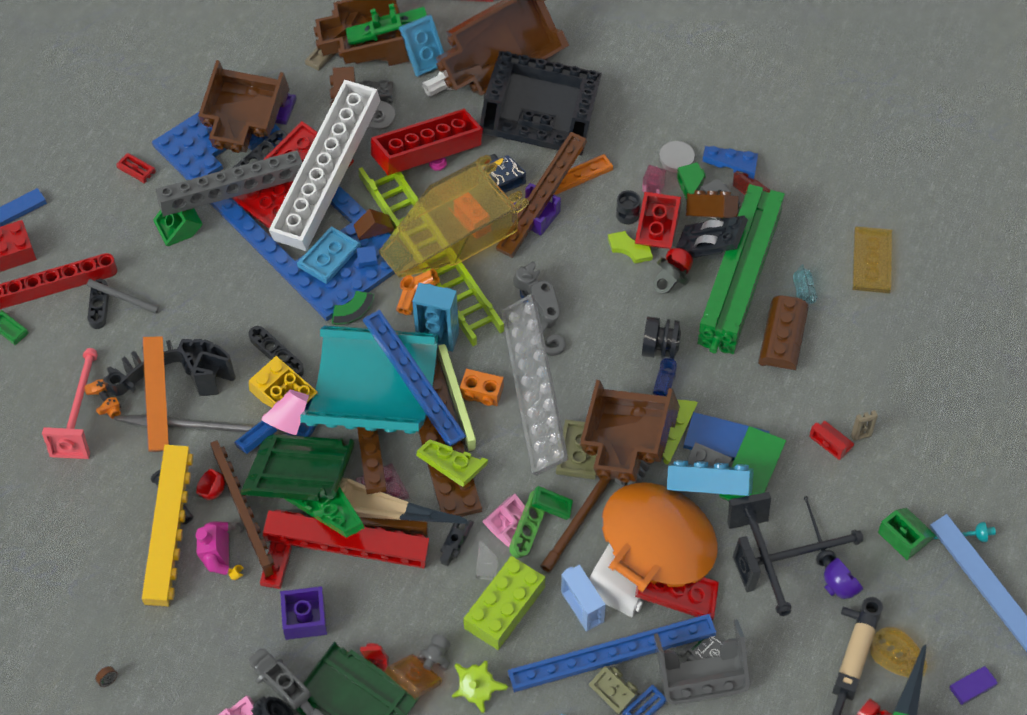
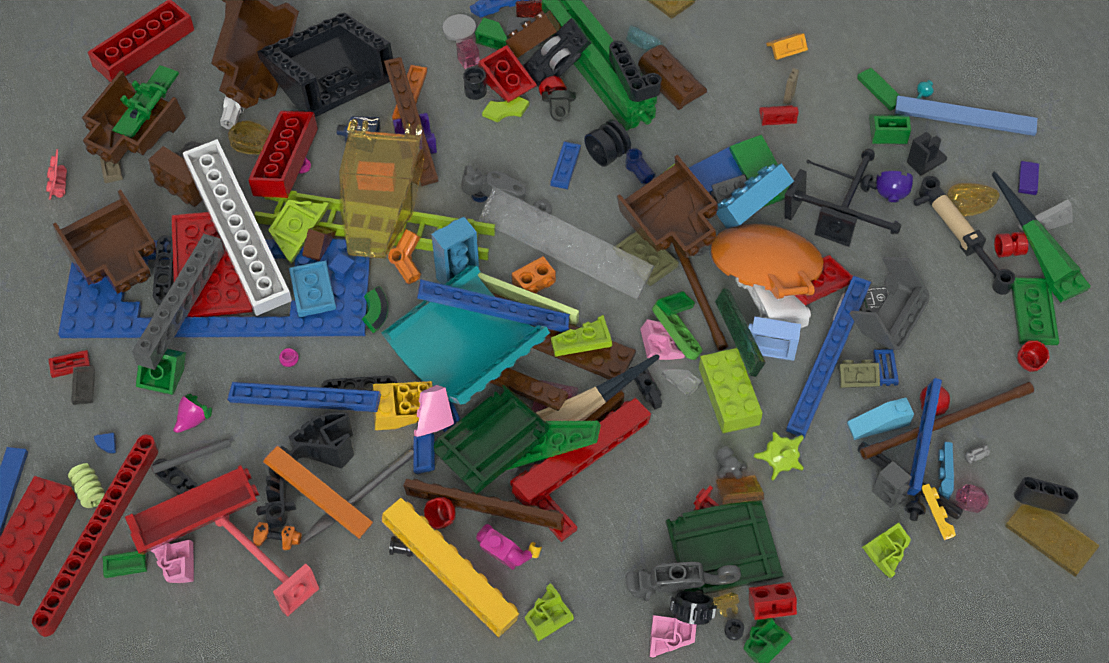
camera: 50 degrees left, 0 degrees up
(34, 355) = (176, 561): none -> bright pink slope
(45, 255) = (86, 485): none -> yellowish green piece
(76, 330) = (192, 510): none -> red panel
(92, 239) = (106, 442): none -> blue tile
(124, 189) = (83, 385): none -> clear smoke plate
(157, 267) = (190, 413): none -> dark pink hat
(189, 623) = (548, 614): none -> lime slope
(230, 324) = (304, 396): none -> blue tile
(260, 288) = (288, 357): none -> dark pink plate
(276, 32) = (57, 178): none -> coral hinge
(303, 613) = (619, 525): dark purple brick -> none
(372, 194) = (292, 225): none -> lime wing
(422, 44) = (191, 93): dark azure tile -> none
(435, 103) = (246, 145): none -> clear yellow piece
(560, 567) = (740, 332): none -> clear green tile
(616, 328) = (565, 165): none -> blue tile
(734, 291) = (636, 86): none -> black beam
(907, 584) = (925, 153): none -> black panel
(915, 393) = (788, 45): none -> light orange panel
(947, 494) = (879, 88): none -> green tile

